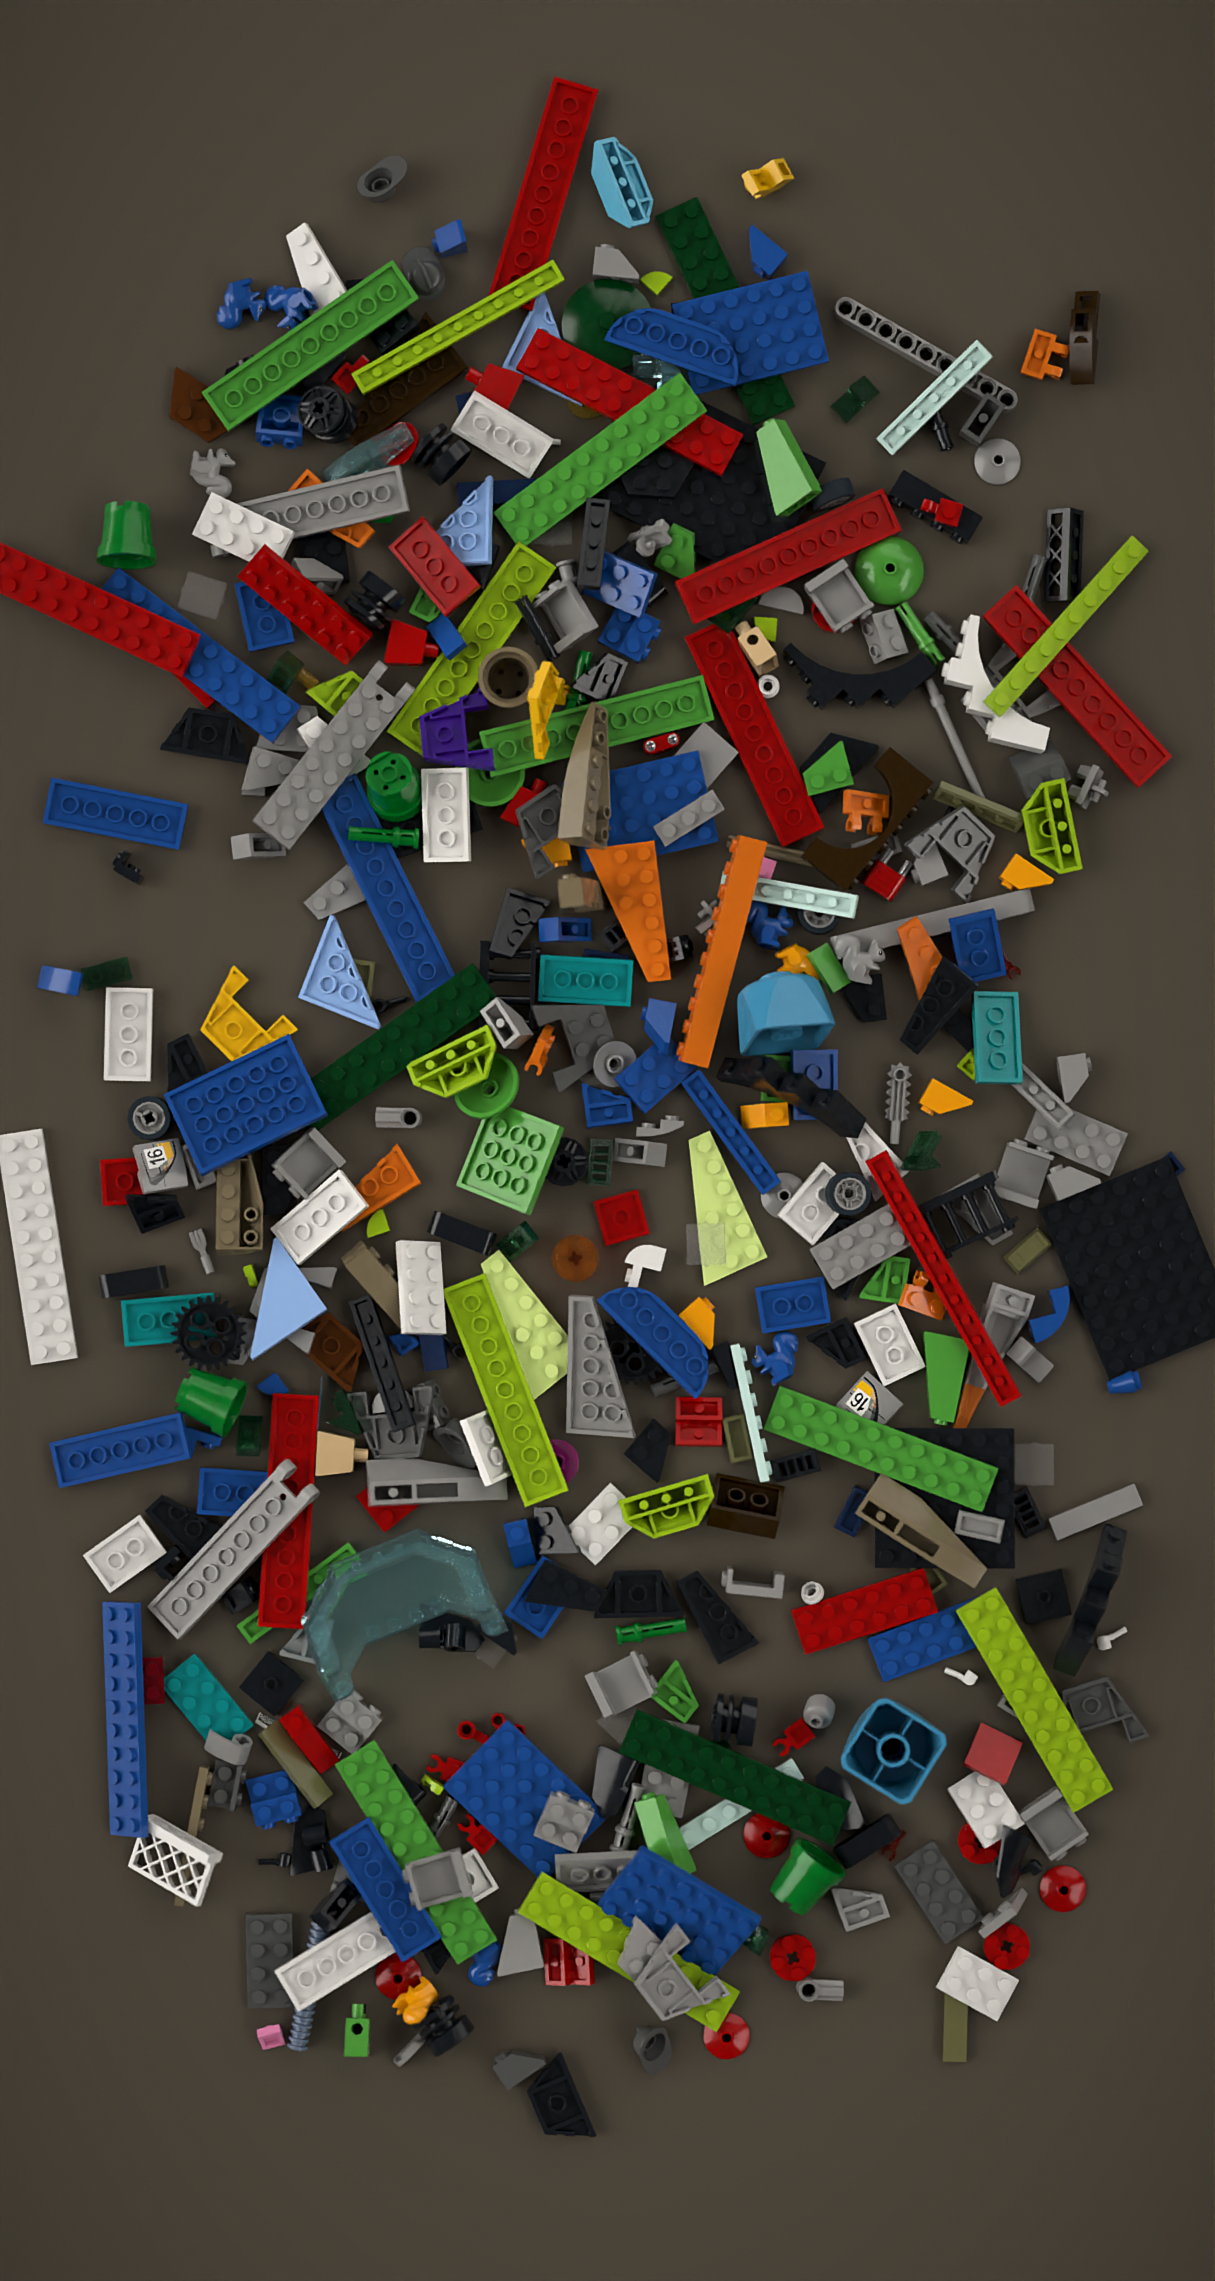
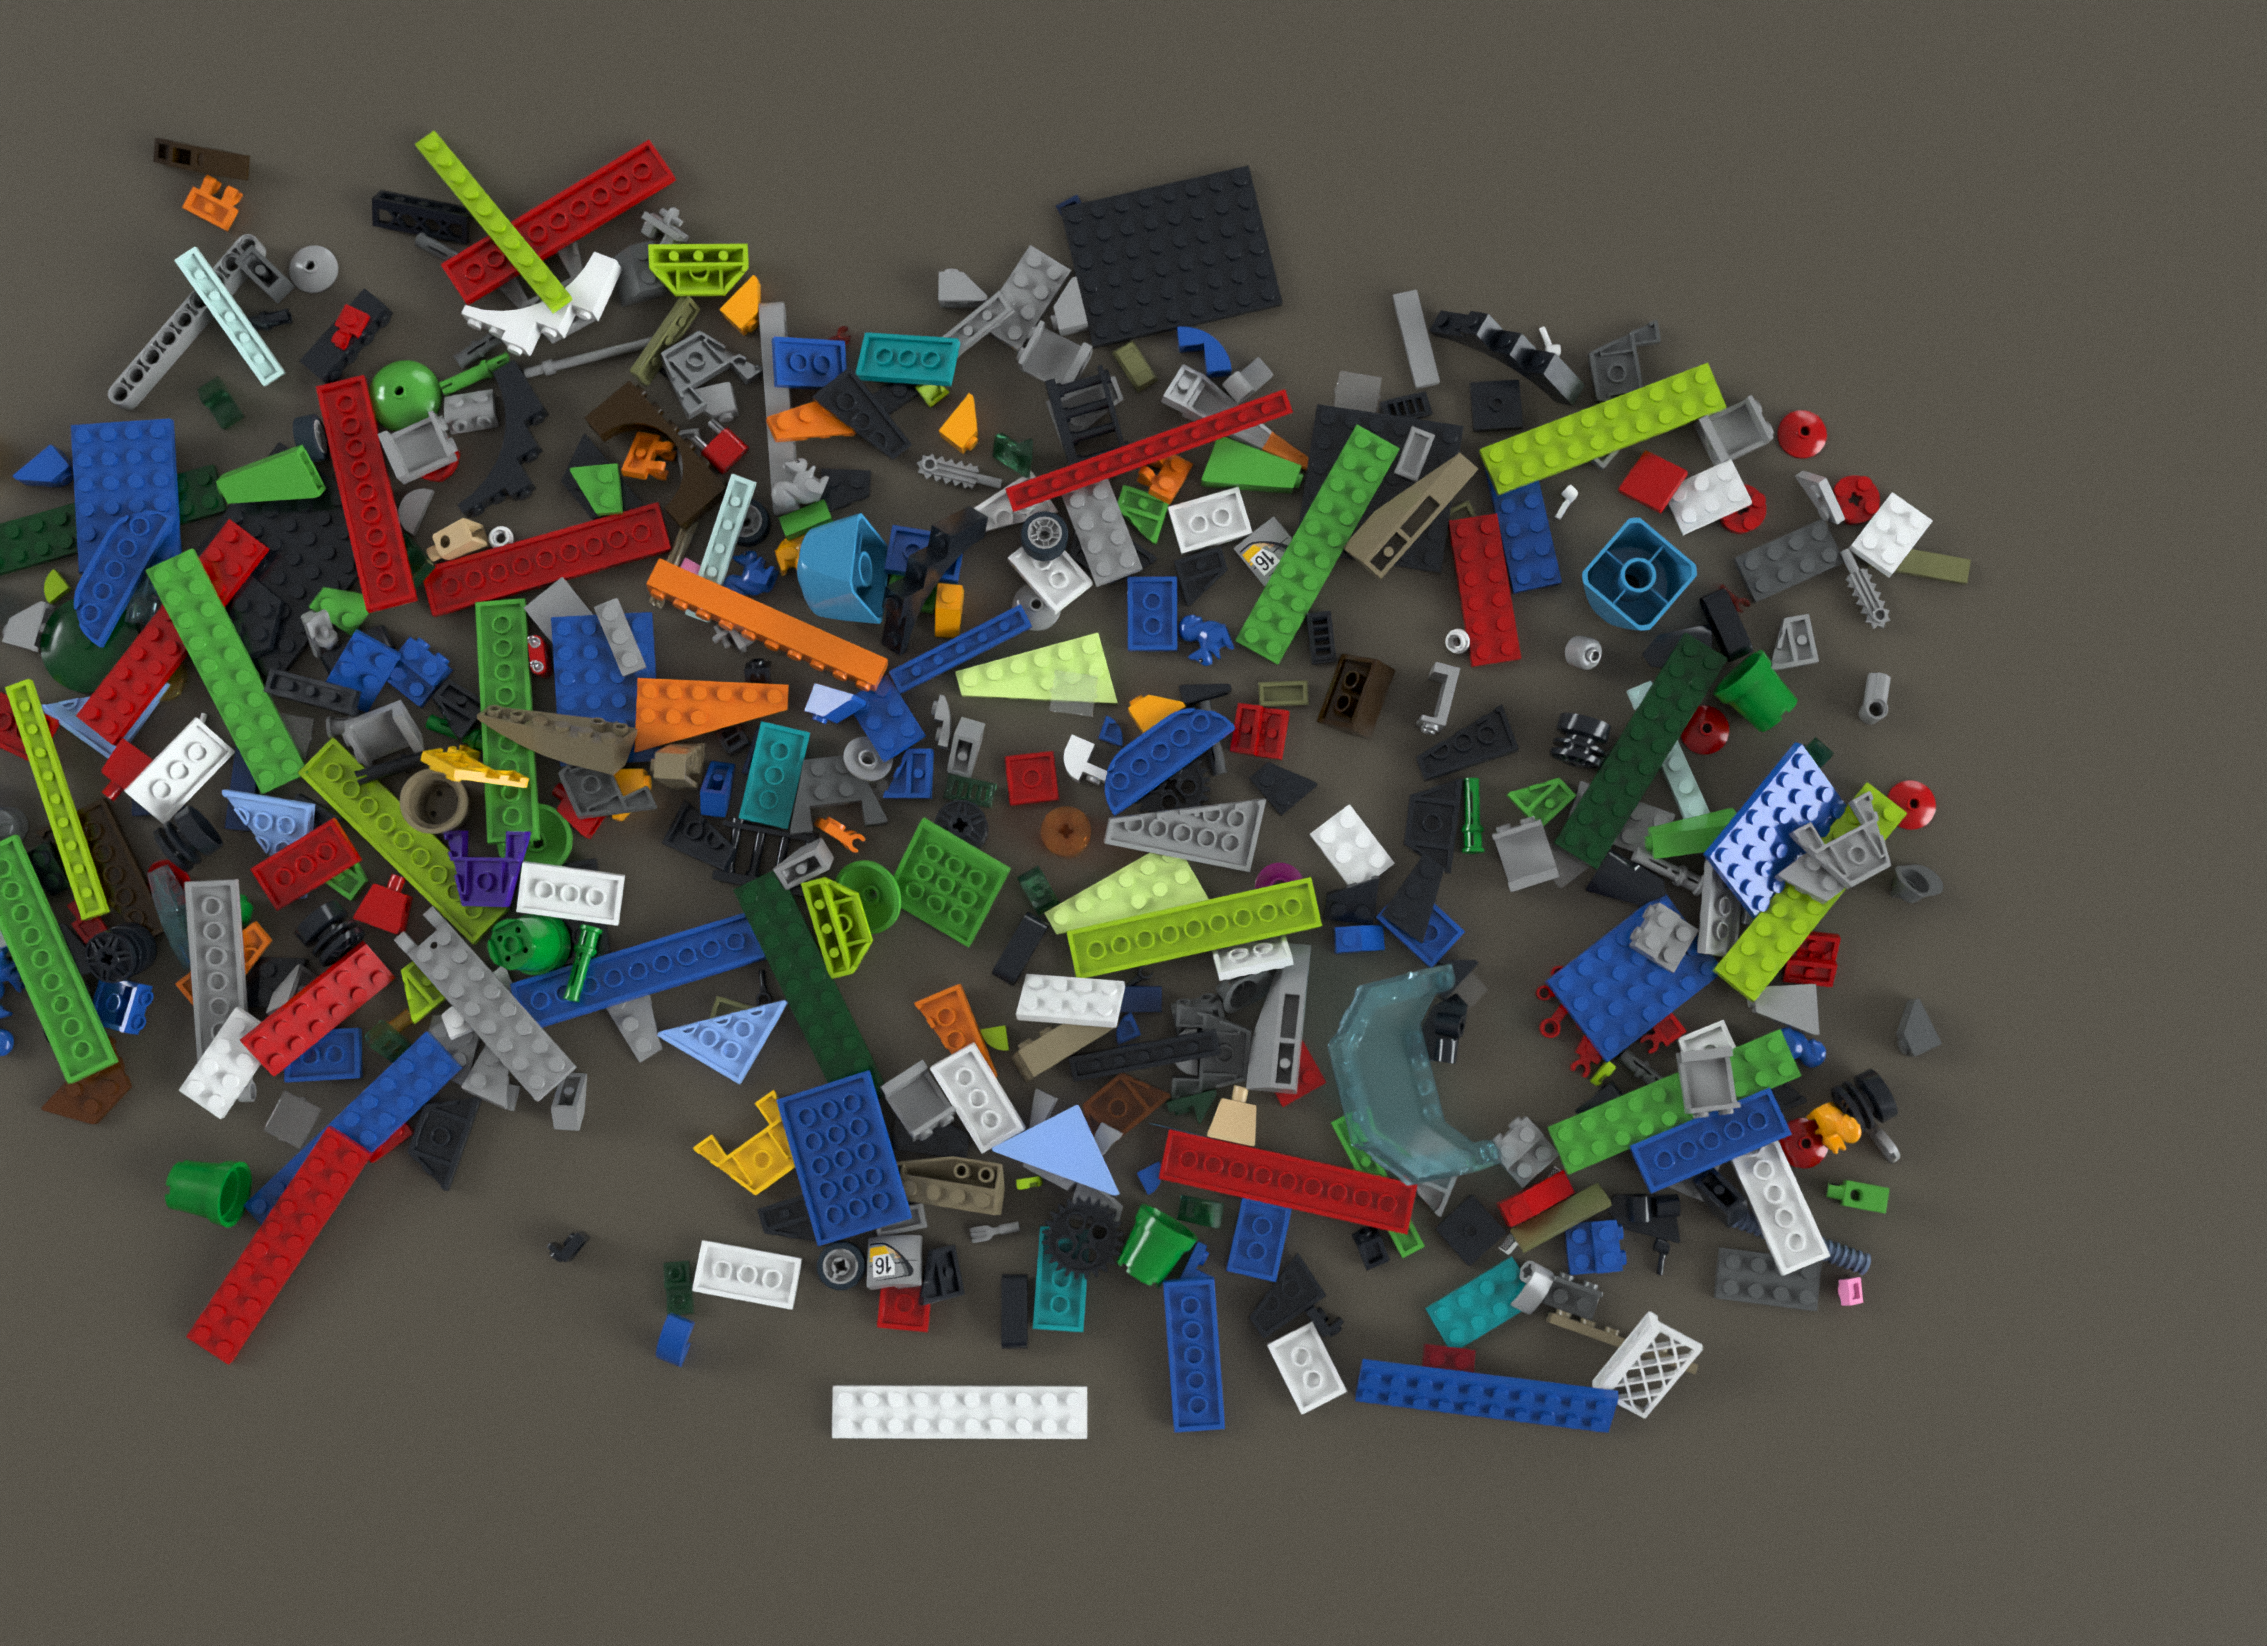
camera: 80 degrees left, 5 degrees down
(115, 813) = (507, 1251): blue plate -> none
(207, 469) = (156, 1091): light grey animal -> none
(230, 1552) = (1322, 1251): light grey hinge -> none
(395, 1117) = (885, 1000): light grey piece -> none
(447, 636) = (383, 863): blue tile -> none
(559, 2102) = (1959, 992): black wing -> none
(669, 1507) = (1345, 774): lime wedge -> none
(676, 1284) = (1111, 732): none -> blue tile
(753, 1422) = (1269, 673): light aqua plate -> none
(767, 626) = (435, 526): lime tile -> none
(796, 1734) = (1604, 680): red plate -> none
(805, 1952) = (1823, 725): red plate -> none
(849, 1521) = (1384, 590): dark blue tile -> none
(914, 1970) = (1864, 590): none -> light grey piece
(1008, 1861) = (1770, 482): black panel -> none
(1033, 1866) = (1774, 461): black hand -> none
(1125, 1383) = (1287, 285): blue cone -> none

